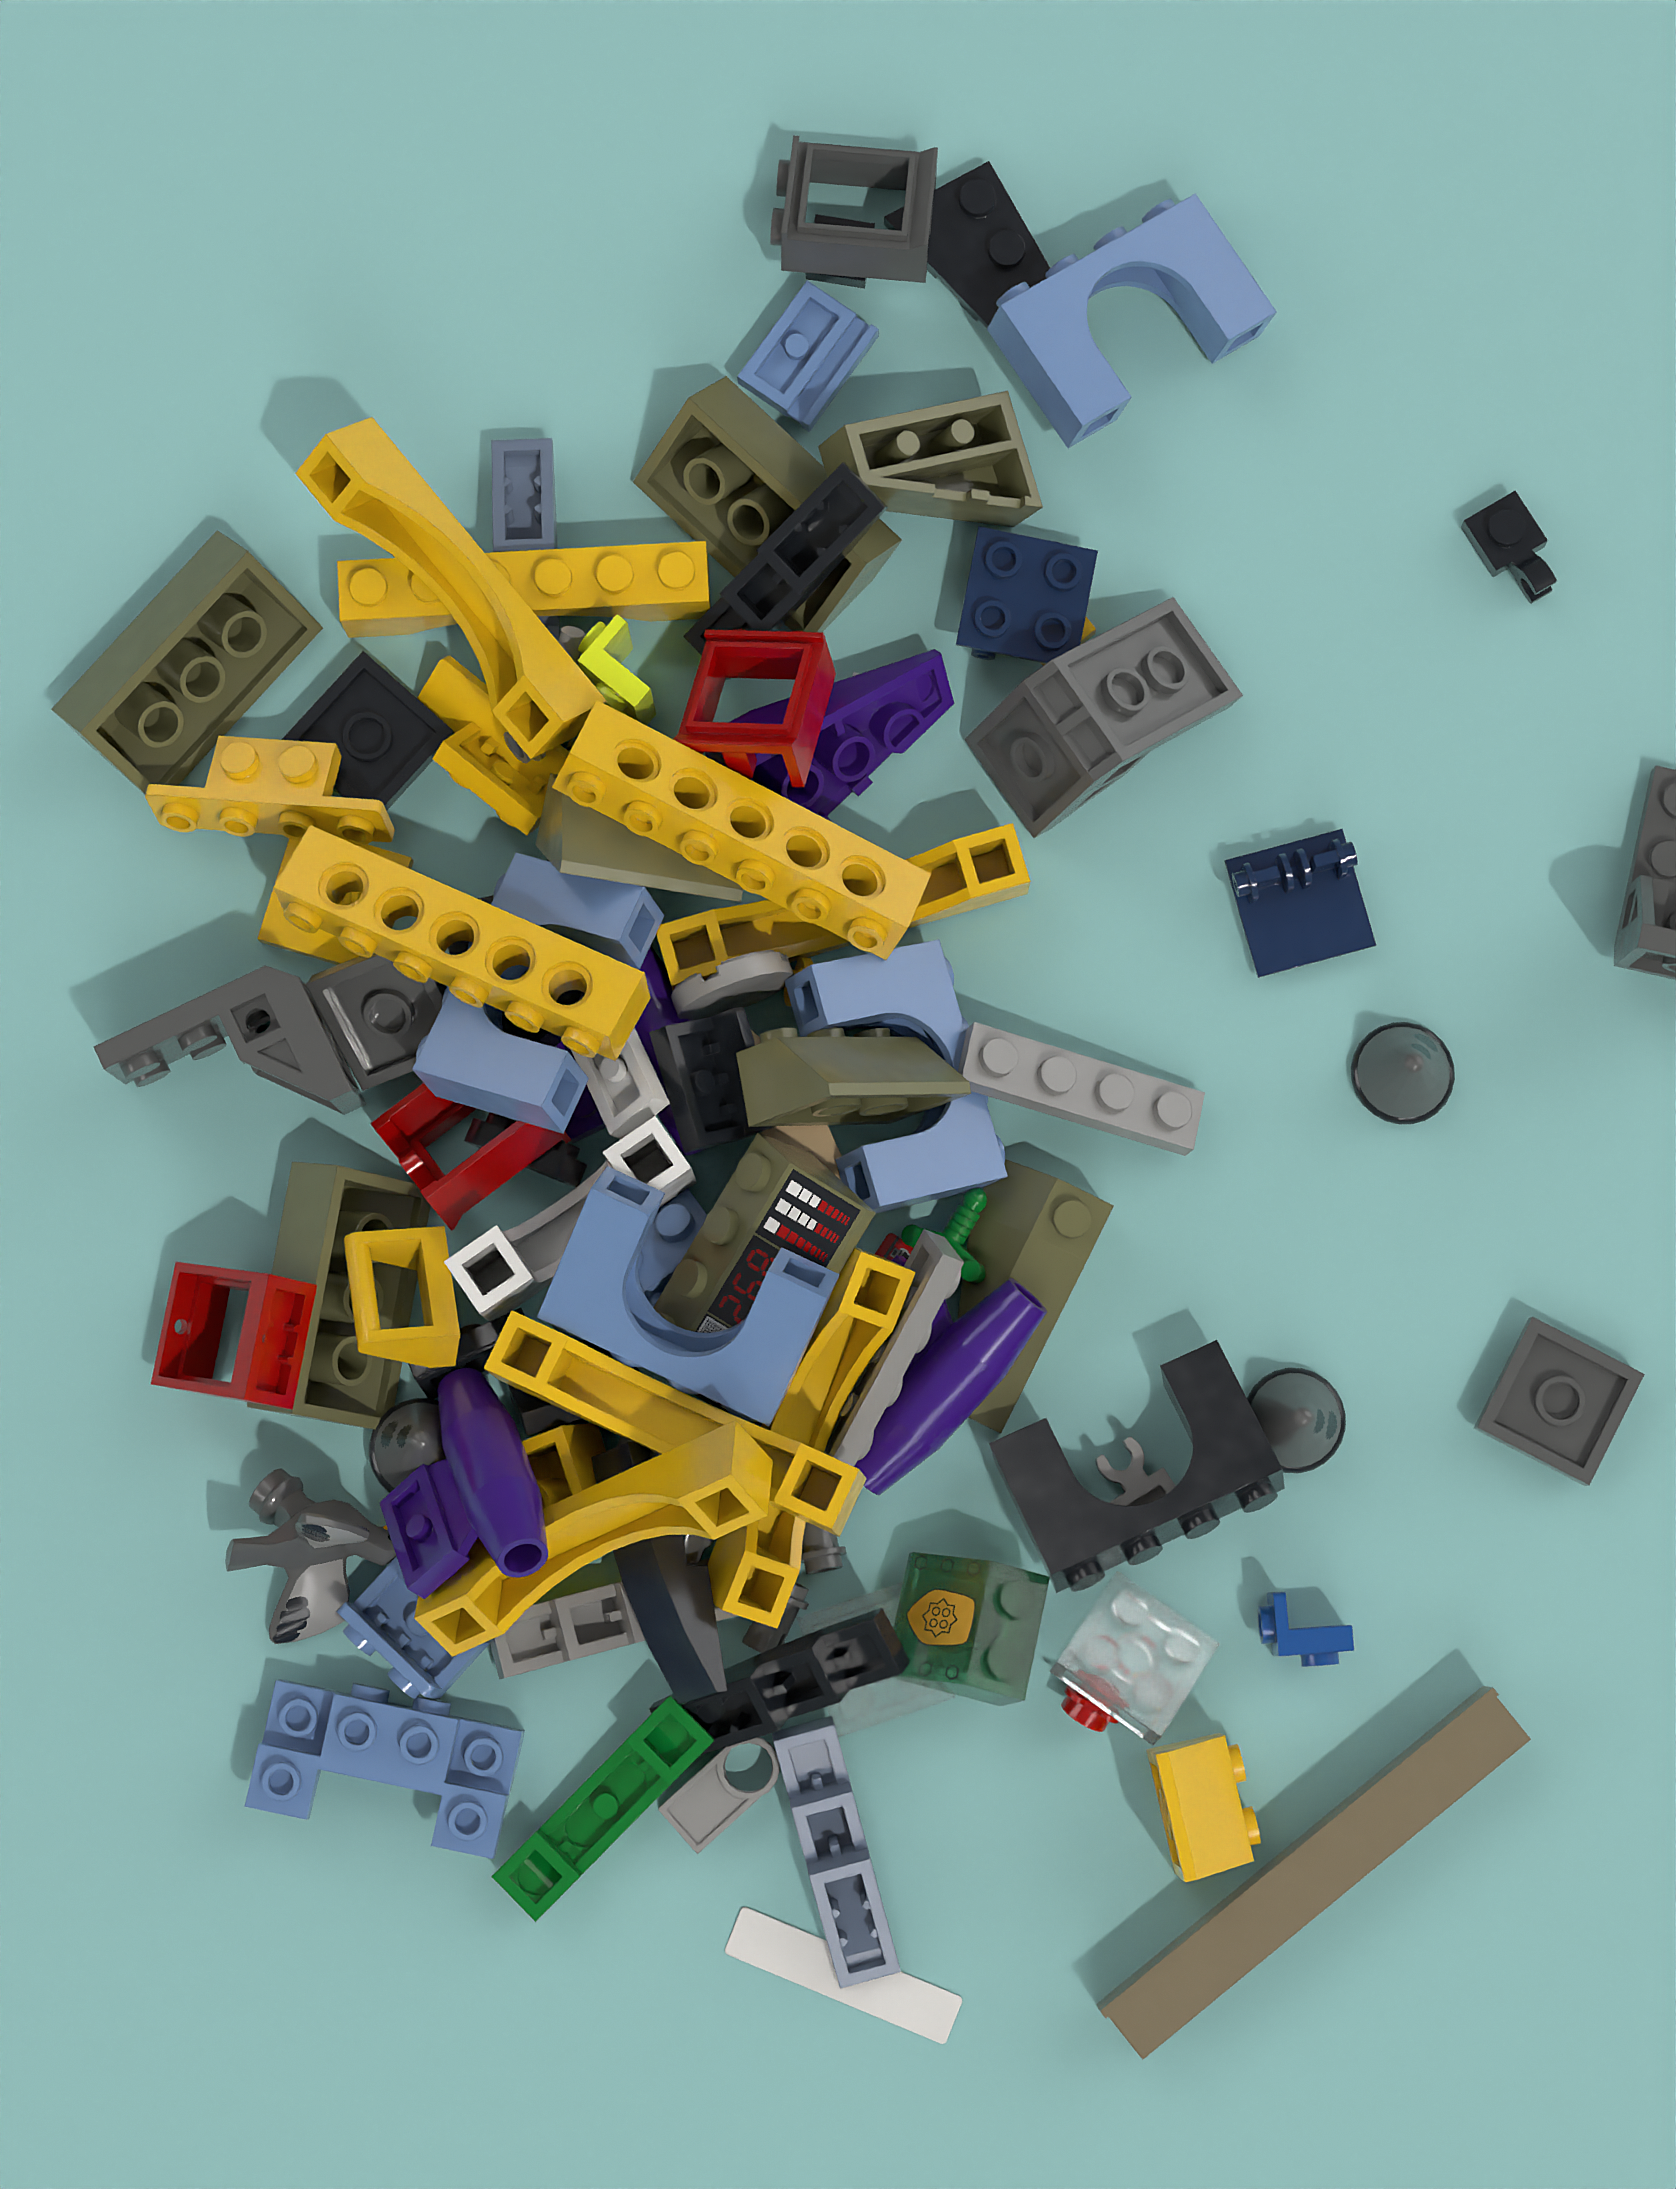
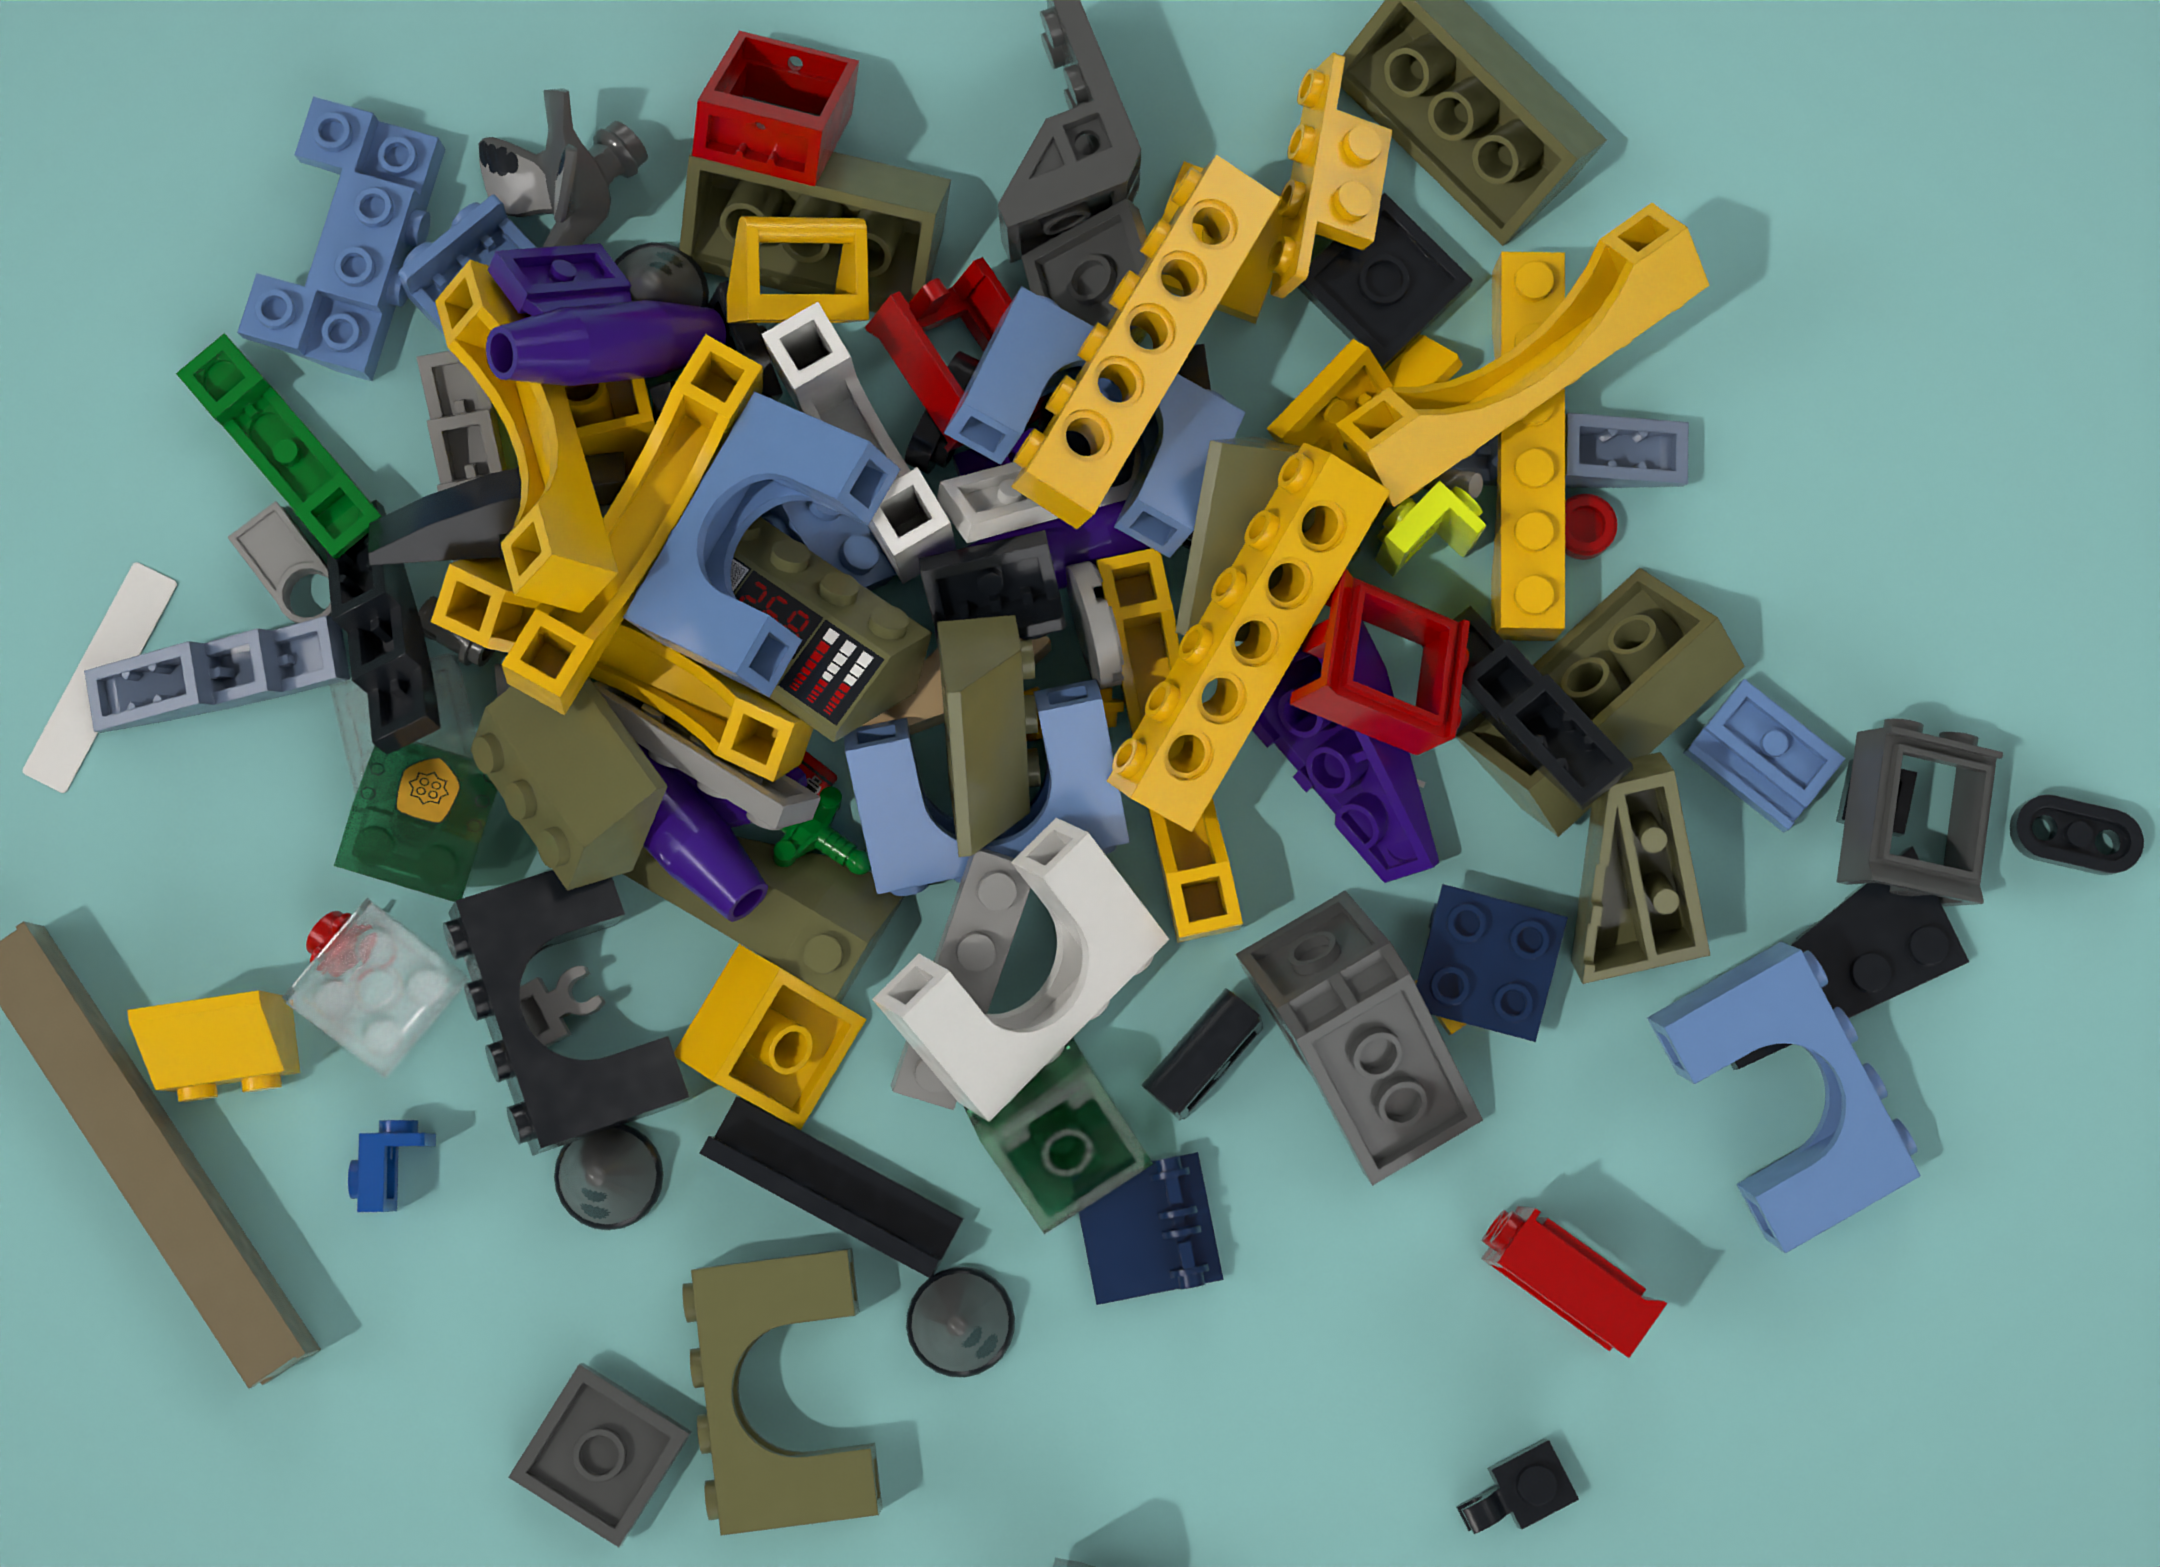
camera: 95 degrees right, 0 degrees up
(595, 527) = (1588, 526): none -> red tile
(860, 71) = (2074, 833): none -> black plate
(928, 1472) = (571, 781): none -> olive slope
(1042, 961) = (1100, 946): none -> white arch
(1132, 860) = (1204, 1054): none -> black brick
(1150, 1274) = (769, 1037): none -> yellow slope
(1220, 989) = (1062, 1140): none -> clear green slope
(1287, 1201) = (833, 1187): none -> black fence
(1317, 503) = (1571, 1279): none -> red window
(1571, 1244) = (755, 1480): none -> olive arch

